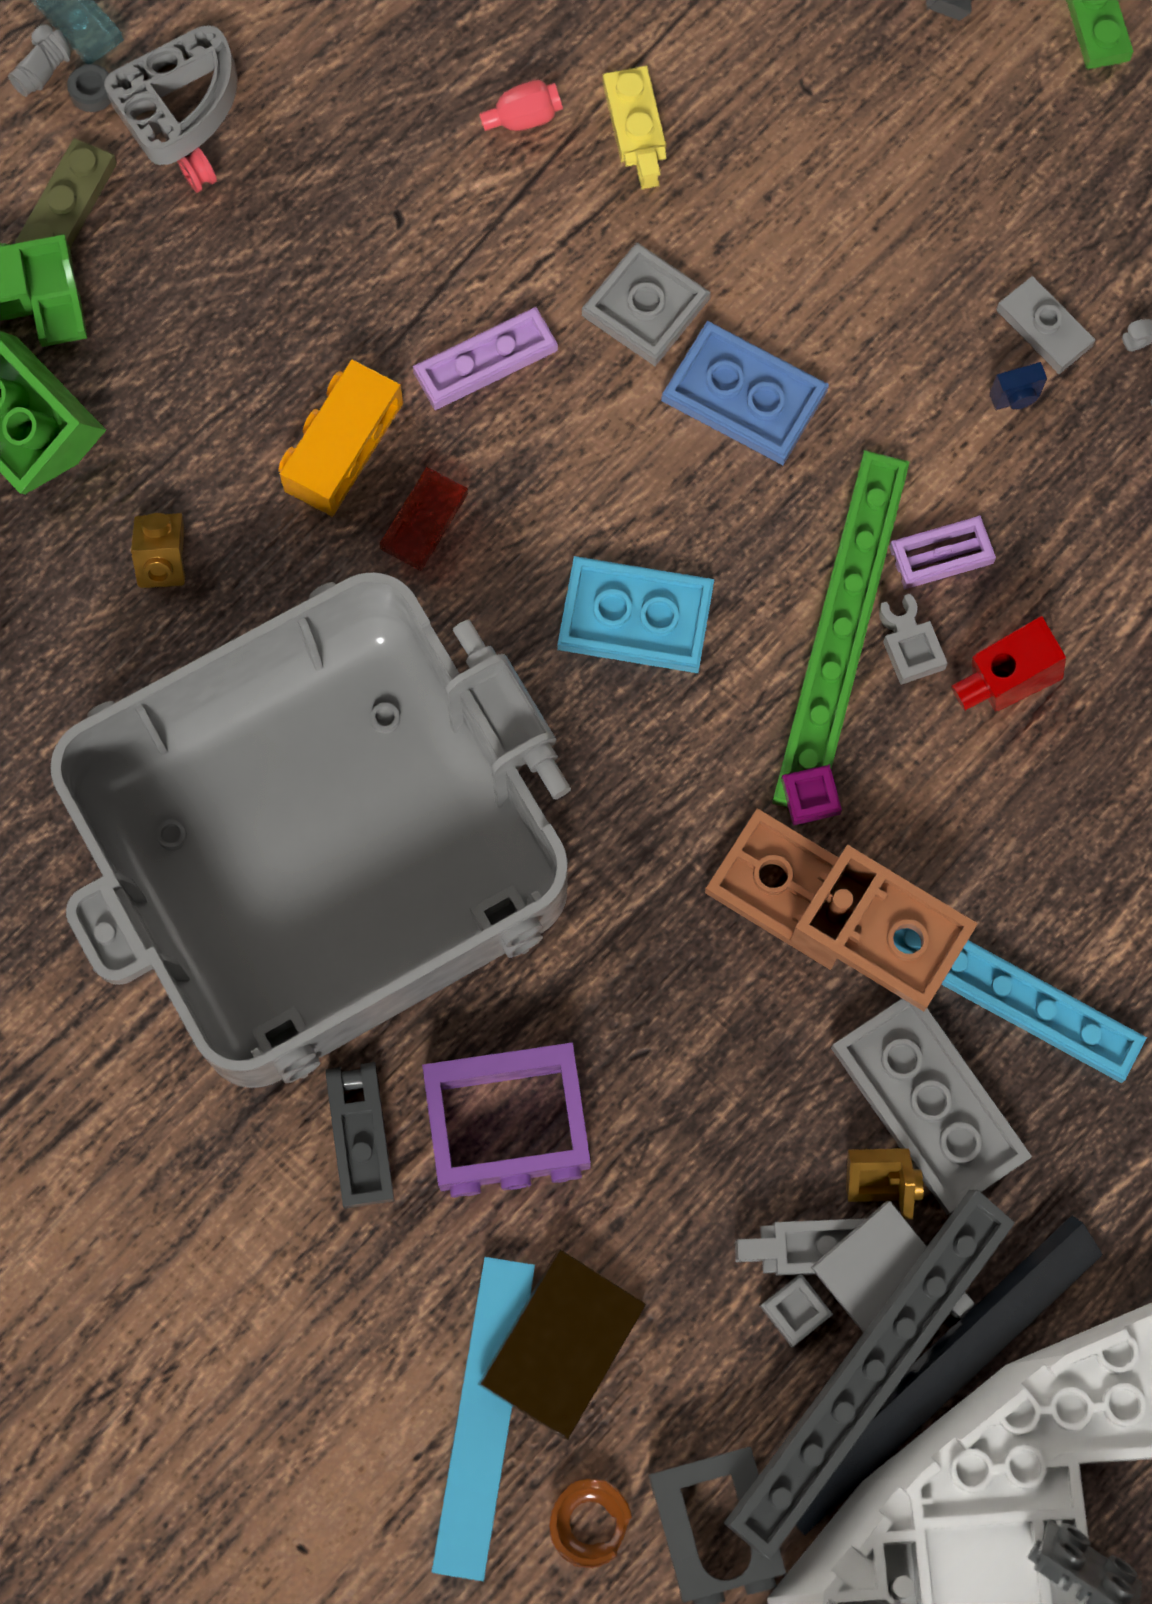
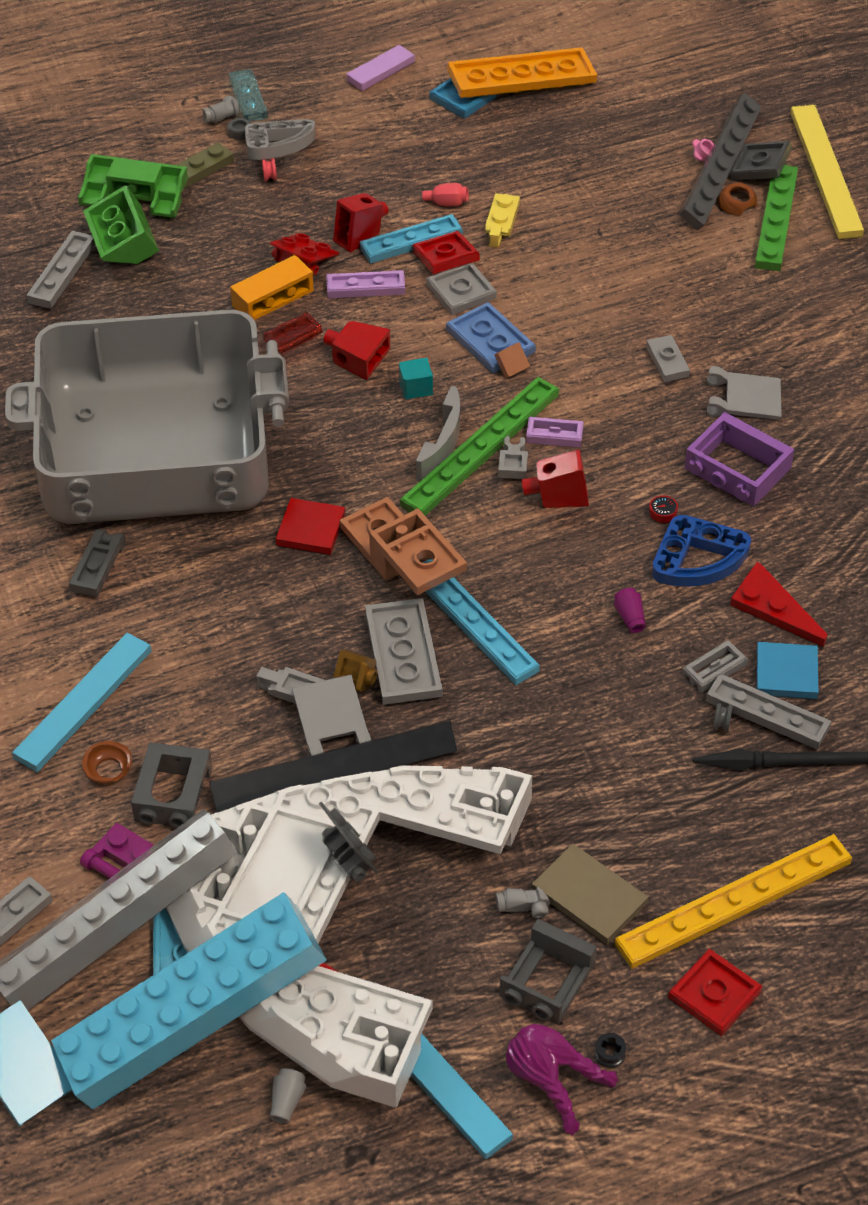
camera: 25 degrees right, 25 degrees down
(158, 550) = (153, 301): pearl gold bracket -> none
(348, 328) = (304, 248): none -> red hinge
(419, 217) = (357, 220): none -> red torso
(496, 1068) = (182, 557): medium lavender window -> none
(509, 227) = (401, 241): none -> medium azure tile
(548, 508) = (358, 347): none -> red torso
(562, 1344) = (142, 681): dark brown tile -> none
(586, 239) = (446, 252): none -> red tile
(635, 614) = (377, 406): medium azure tile -> none
(658, 910) = (310, 526): none -> red tile
(676, 537) = (415, 378): none -> teal piece
(771, 585) = (433, 454): none -> light grey slope
(796, 1310) = (275, 716): light grey tile -> none
(809, 434) = (512, 360): none -> nougat tile
(811, 795) = (419, 498): magenta tile -> none
(868, 1374) = (291, 738): dark grey plate -> none
(1018, 387) = (635, 374): dark blue plate -> none

